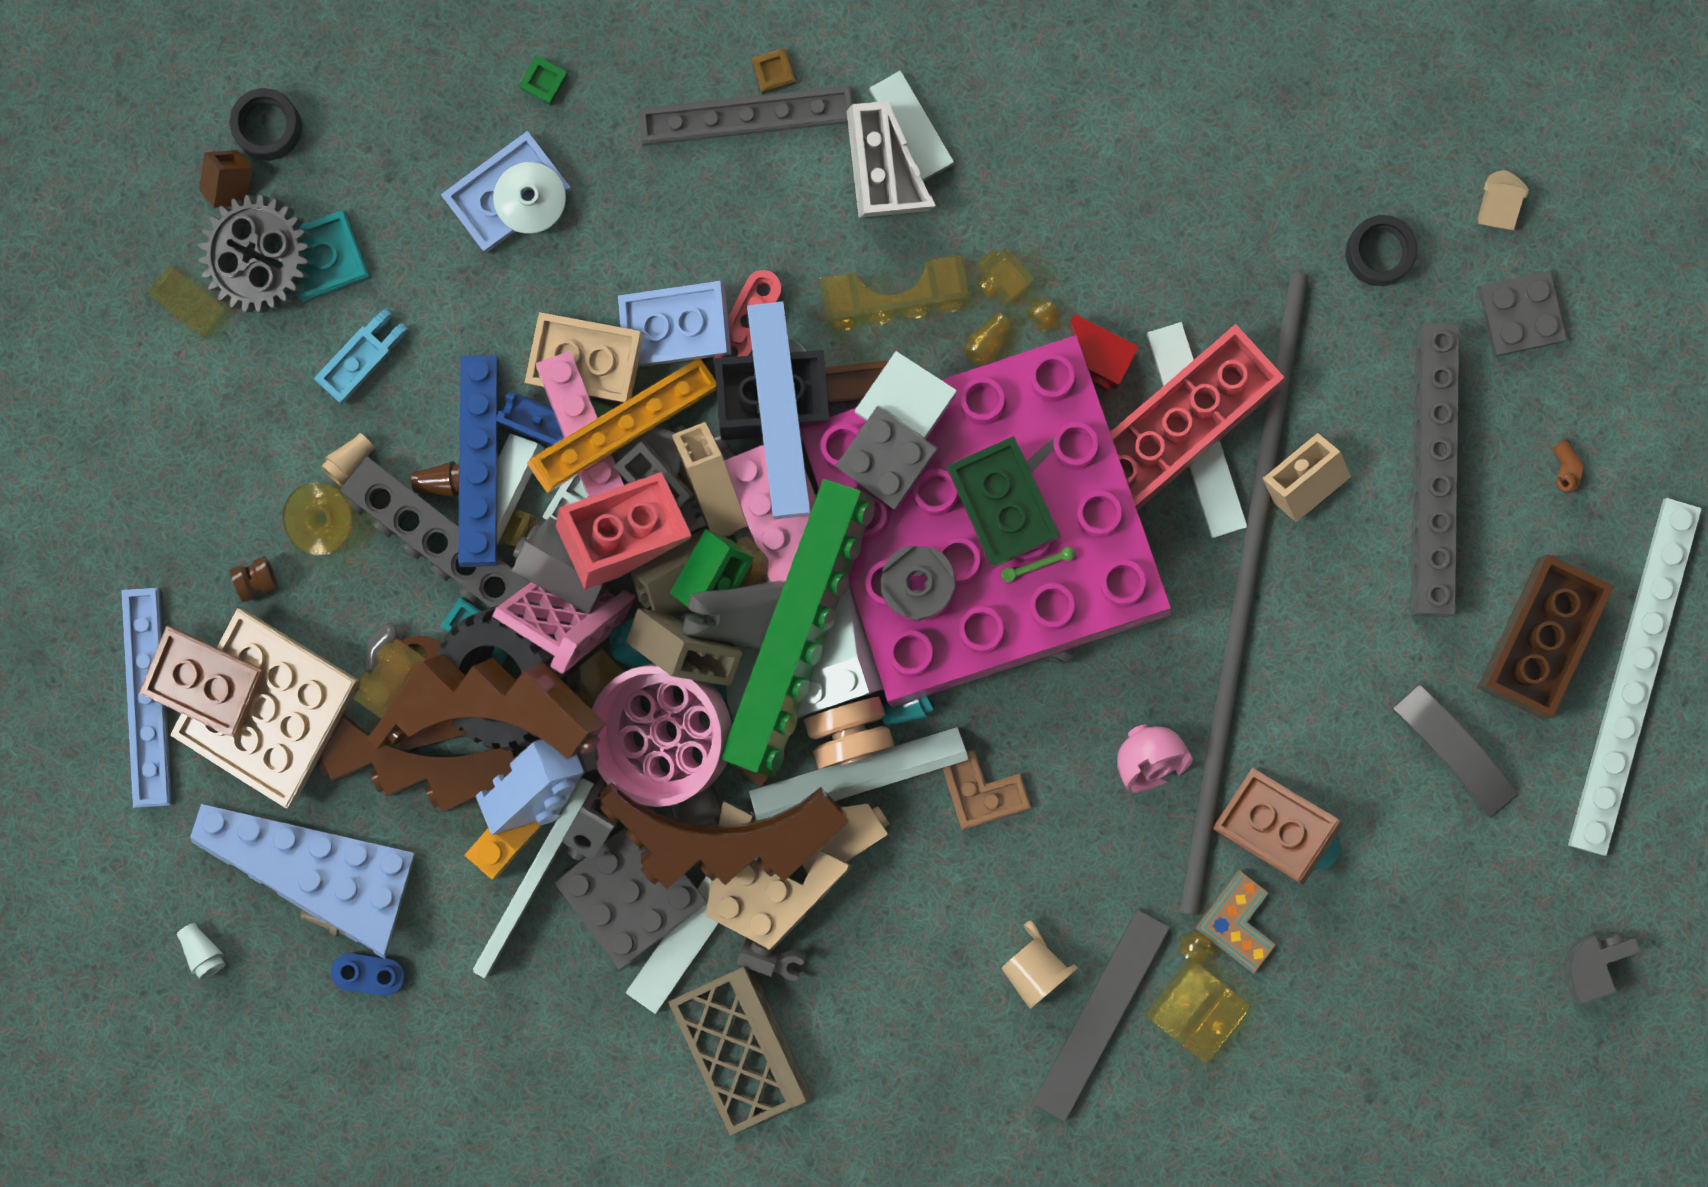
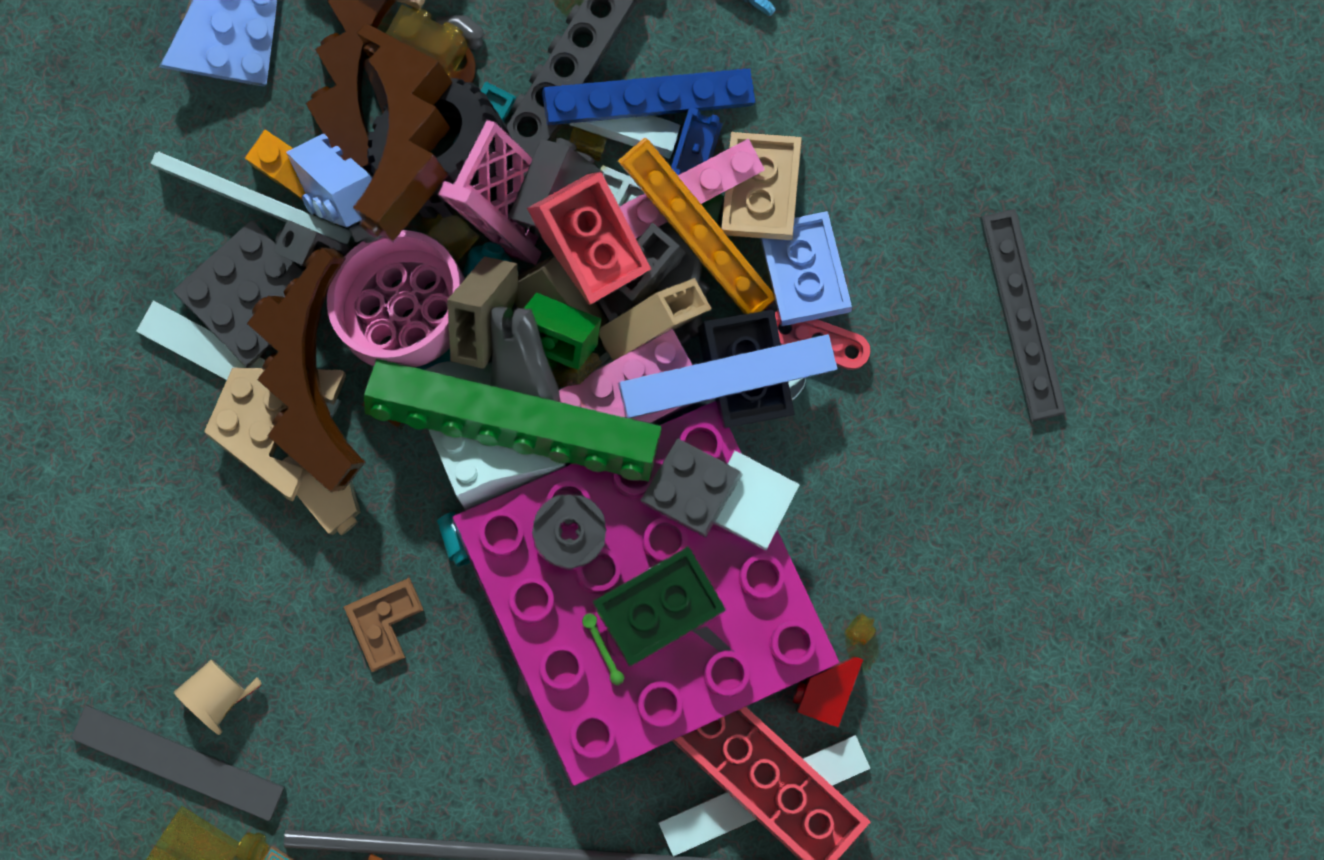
camera: 85 degrees right, 0 degrees up
(367, 974) = (147, 55): blue plate -> none
(437, 480) = (626, 60): reddish brown cone -> none
(473, 195) = (916, 91): light blue plate -> none
(531, 215) = (911, 131): light aqua dish -> none
(543, 80) = (1032, 114): green tile -> none
(699, 809) = (332, 351): dark grey head -> none
(770, 960) = (193, 430): dark grey plate -> none
(770, 1040) = (120, 445): dark tan fence -> none
(773, 70) = (1071, 336): pearl gold tile -> none
(849, 300) = (876, 523): clear yellow arch -> none
(849, 735) = (418, 485): light nougat wheel -> none
(851, 381) = (771, 446): reddish brown tile -> none
(864, 775) = (387, 502): light aqua tile -> none
(882, 165) = (988, 453): white wedge -> none
(917, 129) = (1033, 478): light aqua tile -> none
(987, 341) = (827, 577): clear yellow cone -> none
(1003, 277) = (892, 585): clear yellow brick -> none
(1151, 755) = (433, 784): bright pink cylinder -> none

